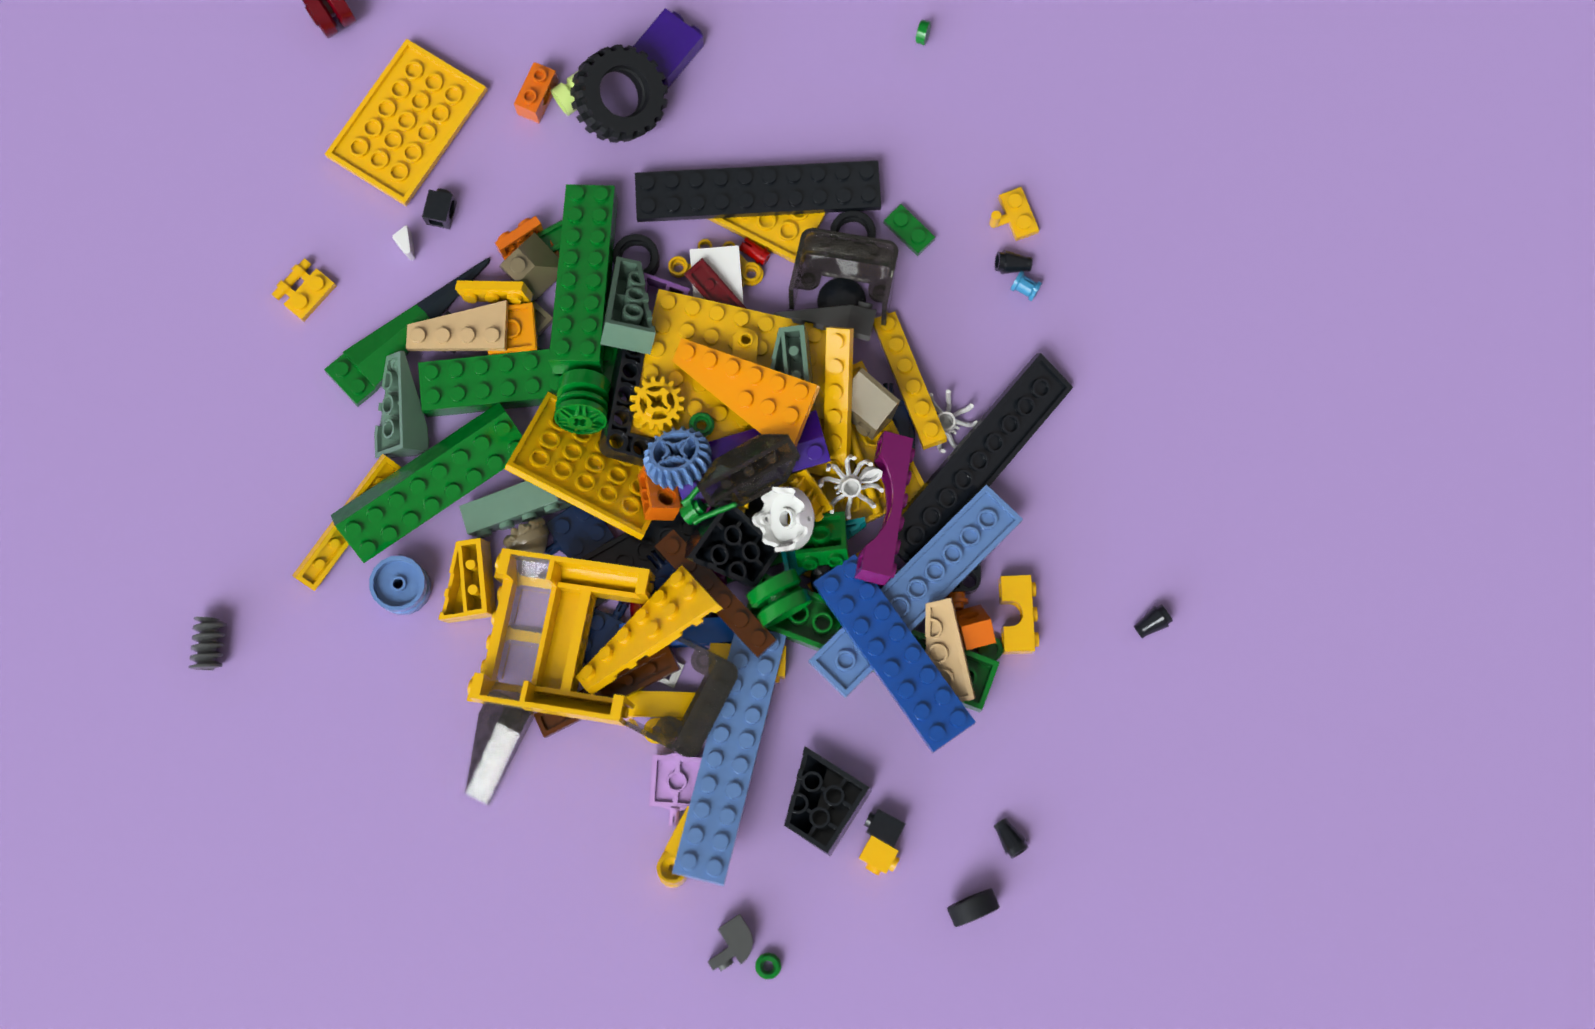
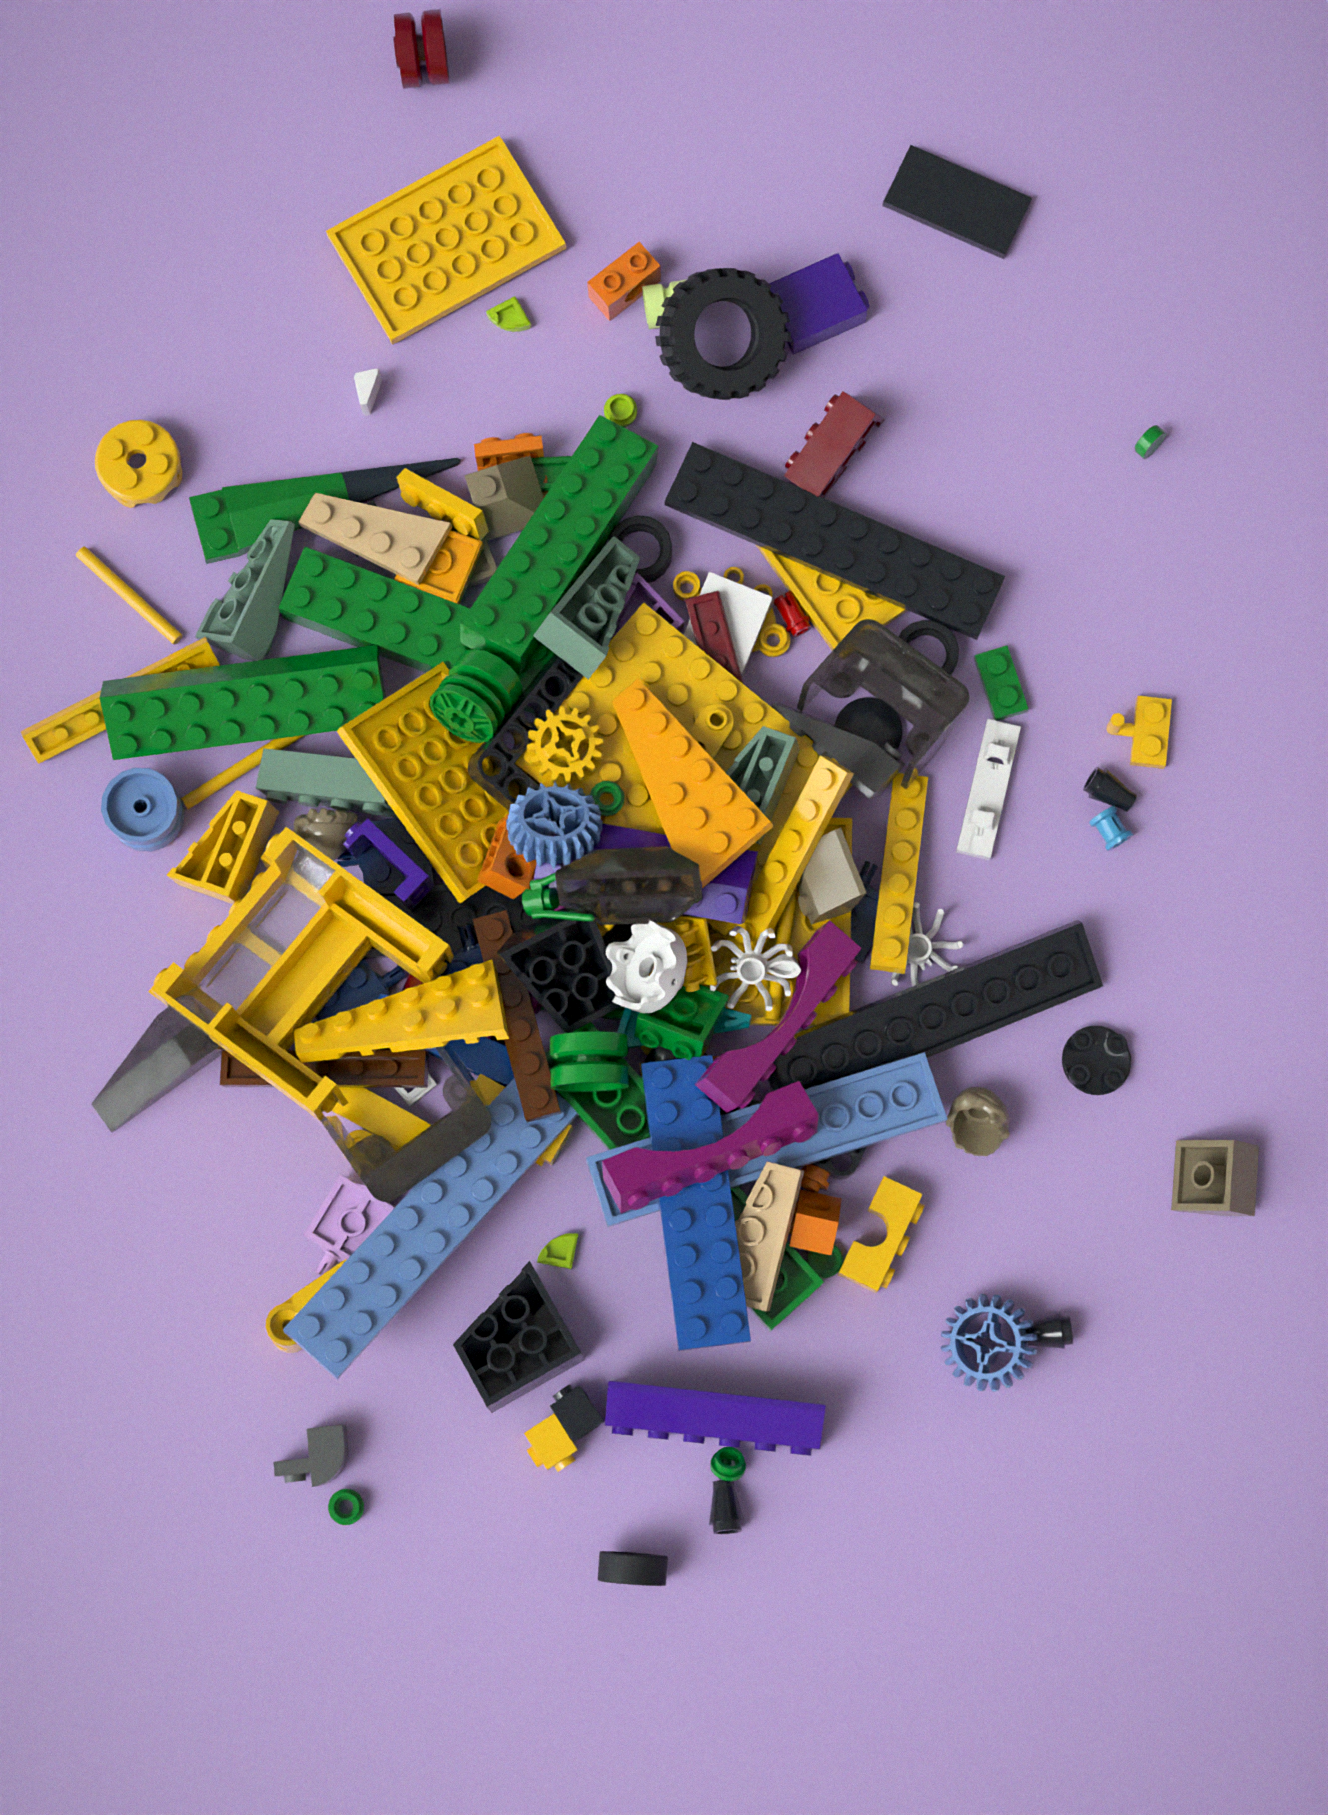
camera: 30 degrees right, 0 degrees up
(285, 378) = (141, 484): none -> yellow plate
(309, 294) = (219, 395): yellow plate -> none
(317, 452) = (129, 595): none -> yellow bar
(439, 208) = (430, 367): black brick -> none
(447, 531) = (234, 772): none -> yellow bar
(473, 151) = (509, 316): none -> lime tile
(562, 525) = (417, 882): none -> dark purple panel
(577, 175) = (621, 409): none -> lime plate
(724, 131) = (831, 444): none -> dark red wedge
(819, 731) = (559, 1251): none -> lime tile
(856, 650) = (645, 1174): none -> magenta arch
(936, 300) = (988, 790): none -> white hinge
(974, 782) = (714, 1416): none -> dark purple slope
(997, 809) = (728, 1464): none -> green plate
(1041, 511) = (978, 1121): none -> dark tan hair
(1093, 435) = (1096, 1060): none -> black dish
(1124, 658) = (985, 1359): none -> medium blue gear
(1205, 471) = (1215, 1177): none -> dark tan slope

